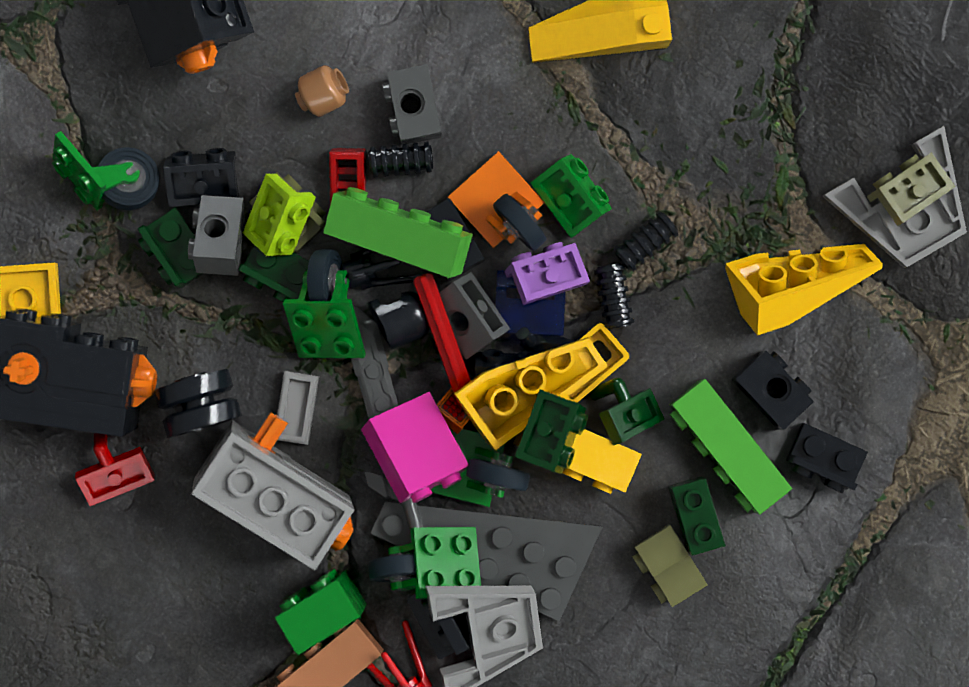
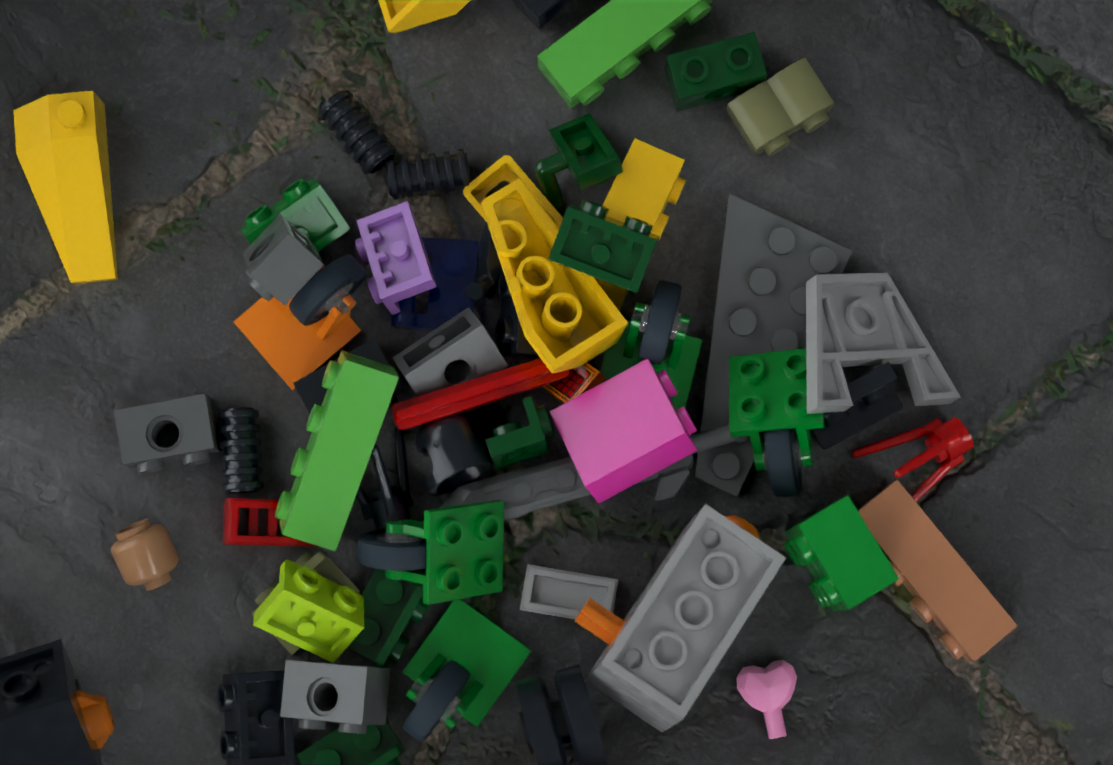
camera: 85 degrees left, 5 degrees down
(225, 557) = (768, 691): none -> bright pink rock
(237, 327) = (460, 670): none -> green plate
(406, 366) = (518, 444): none -> dark green bracket
(539, 187) = (281, 261): none -> dark grey brick

